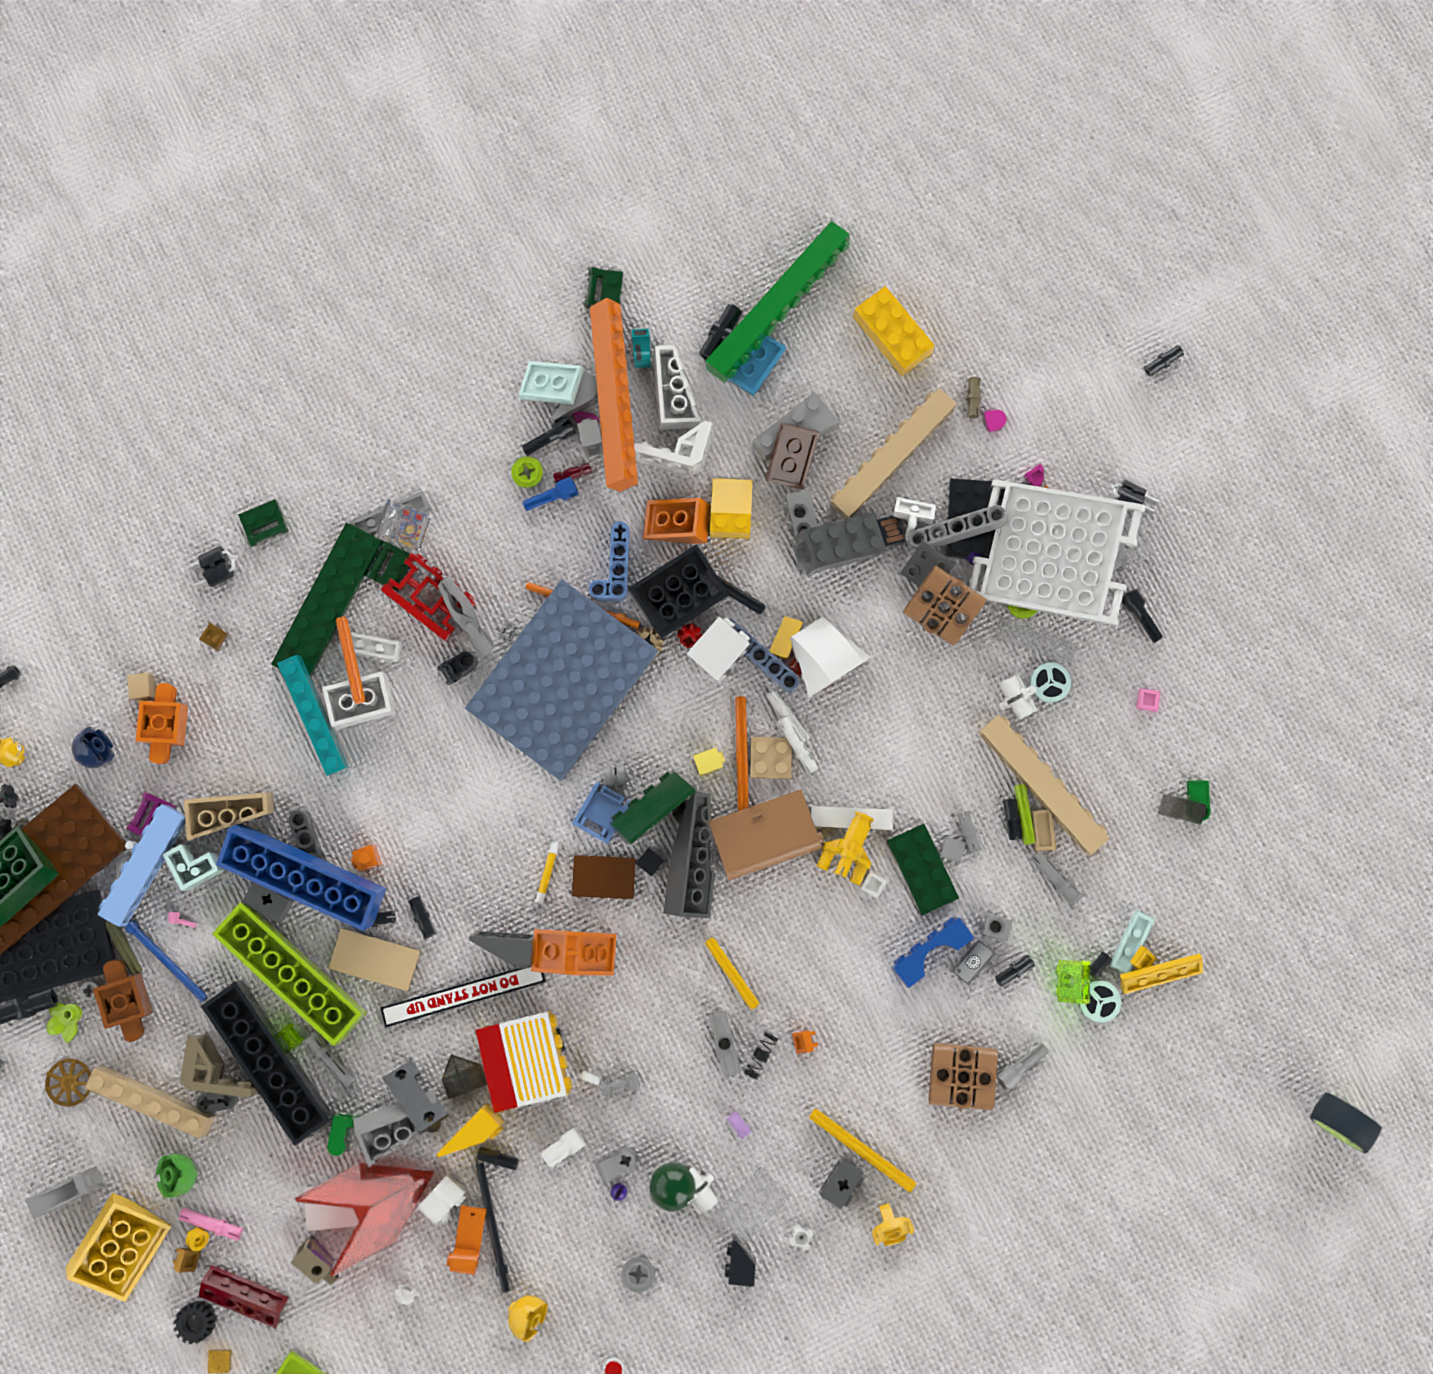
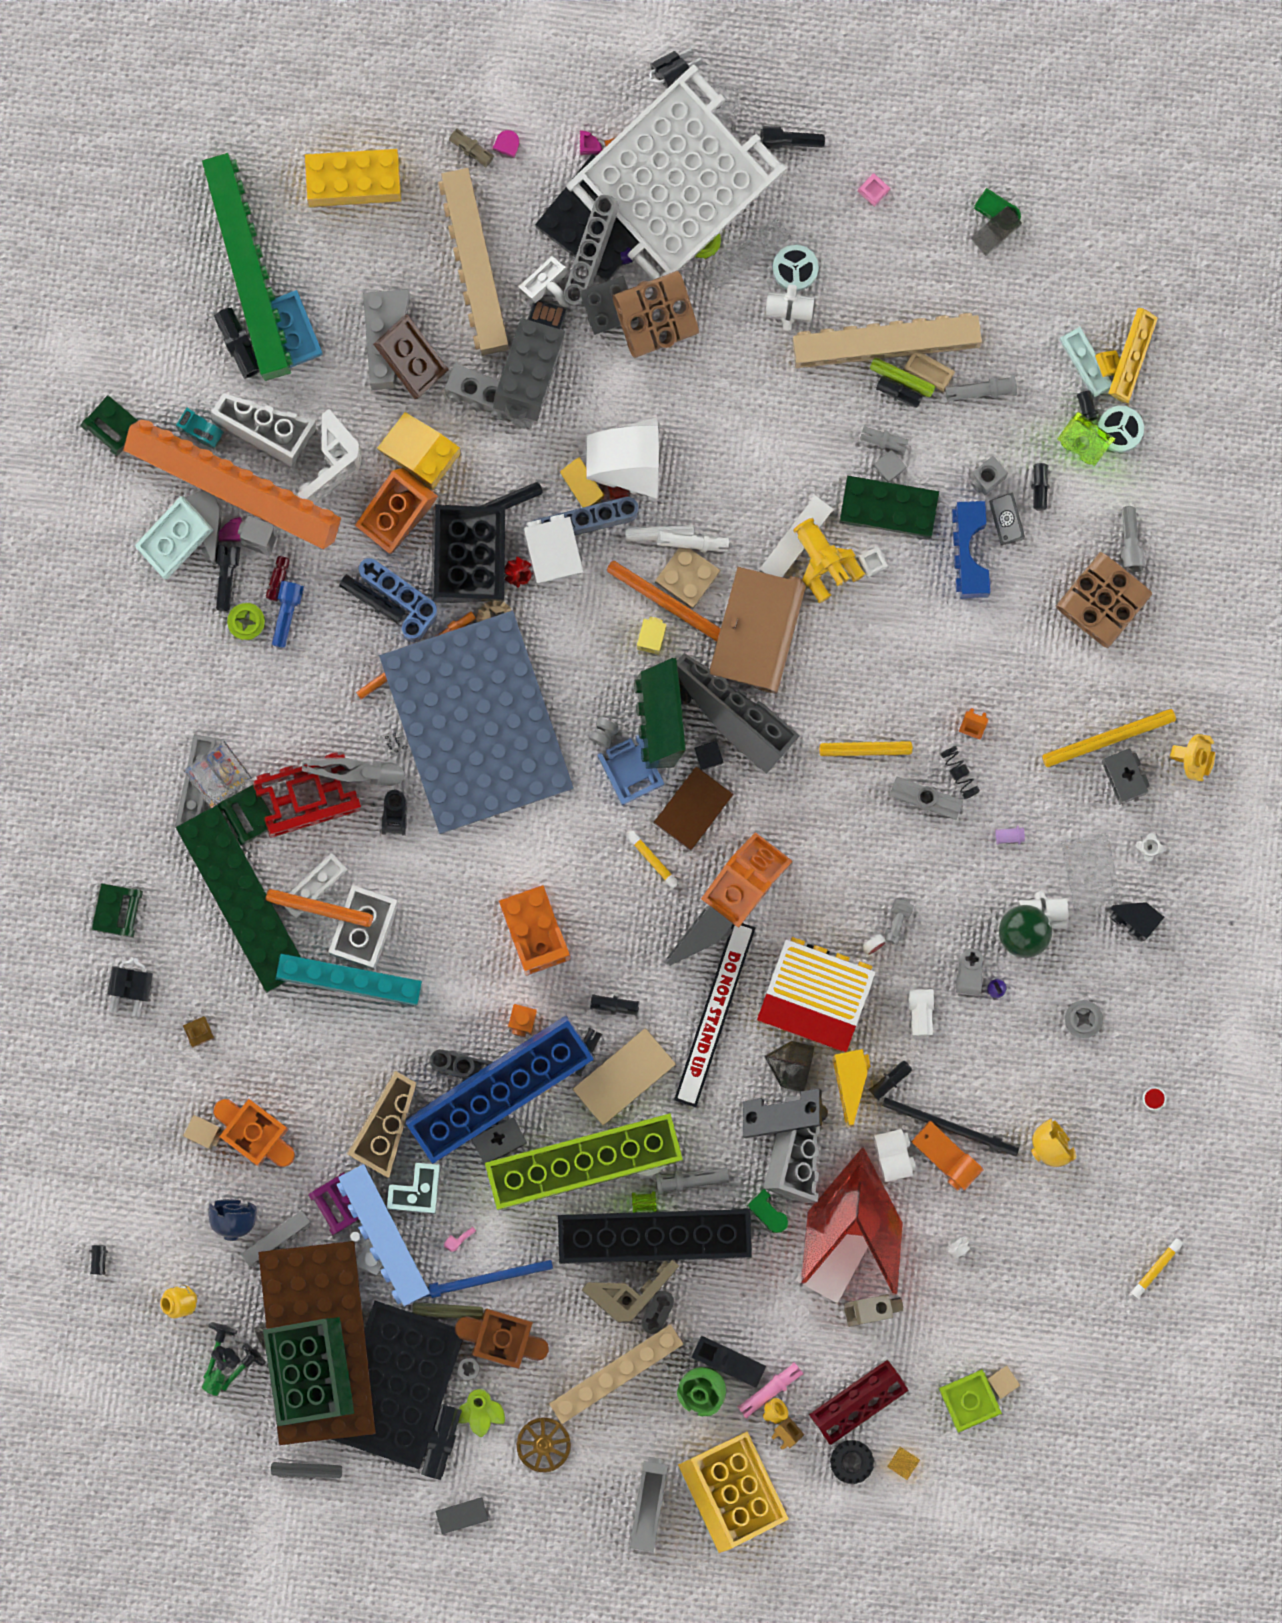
camera: 60 degrees left, 0 degrees up
(100, 790) = (277, 1238): none -> light grey piece
(210, 1177) = (728, 1361): none -> black slope
(436, 825) = (534, 930): none -> orange bracket
(601, 547) = (379, 603): none -> black pin

